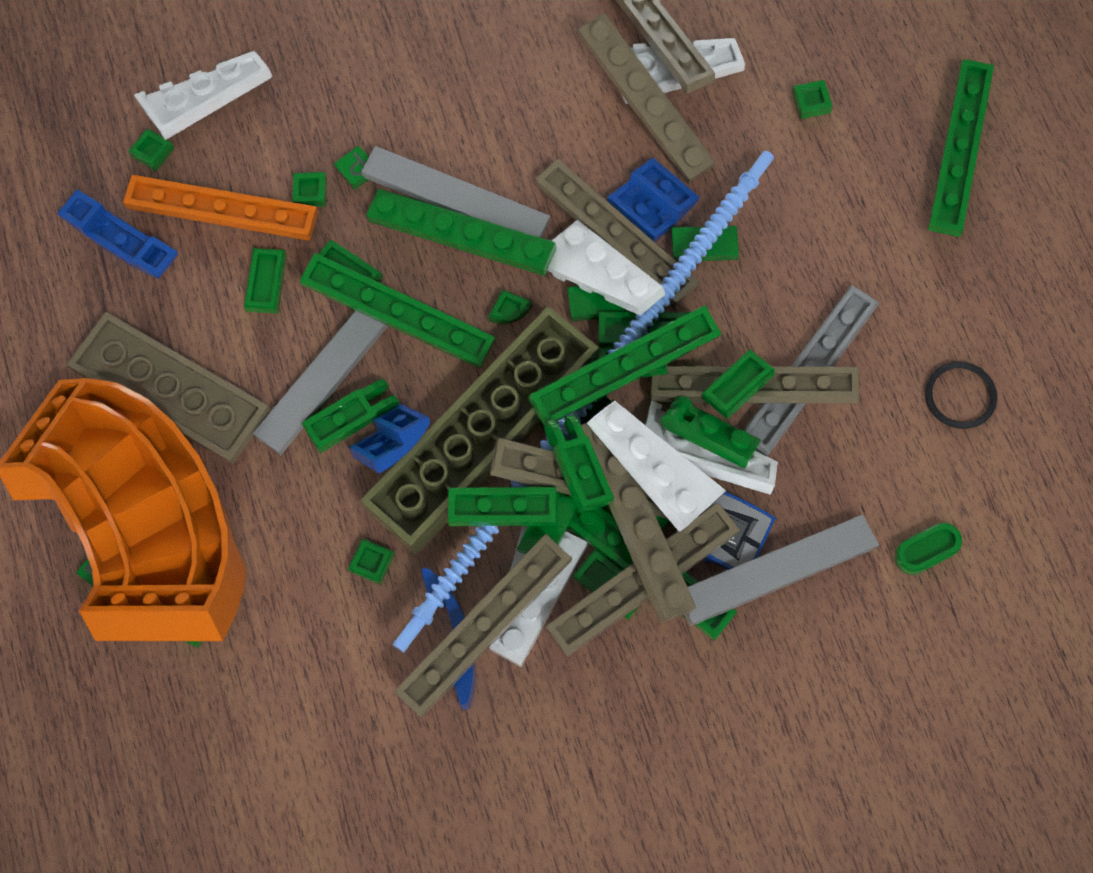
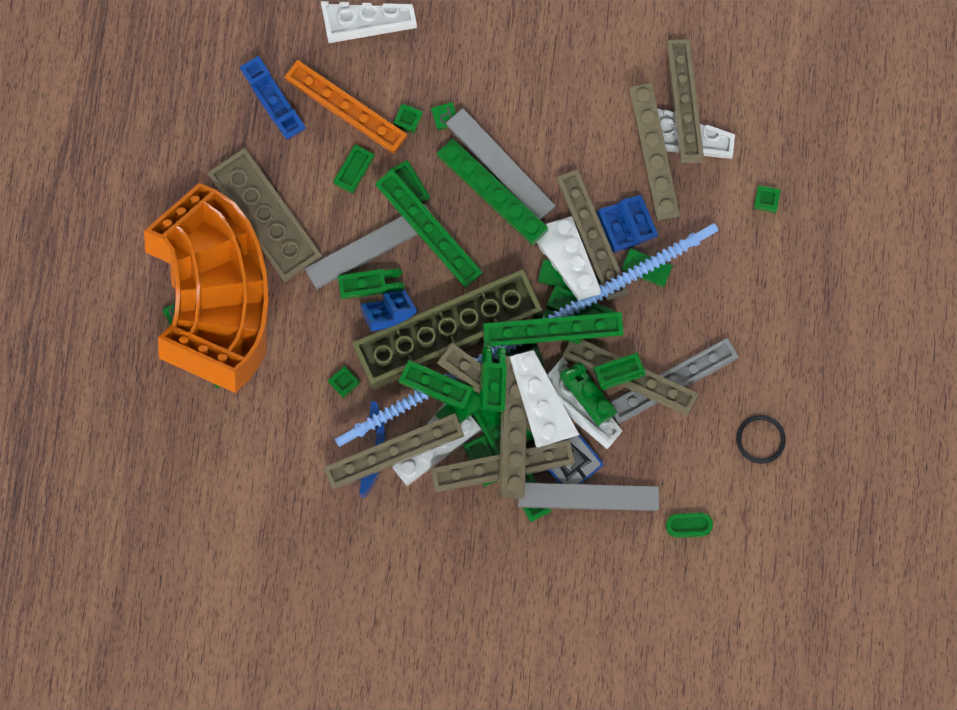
camera: 20 degrees right, 5 degrees up
(151, 149) = (316, 45): green tile -> none
(509, 308) = (501, 256): green tile -> none
(961, 148) = (846, 276): green plate -> none

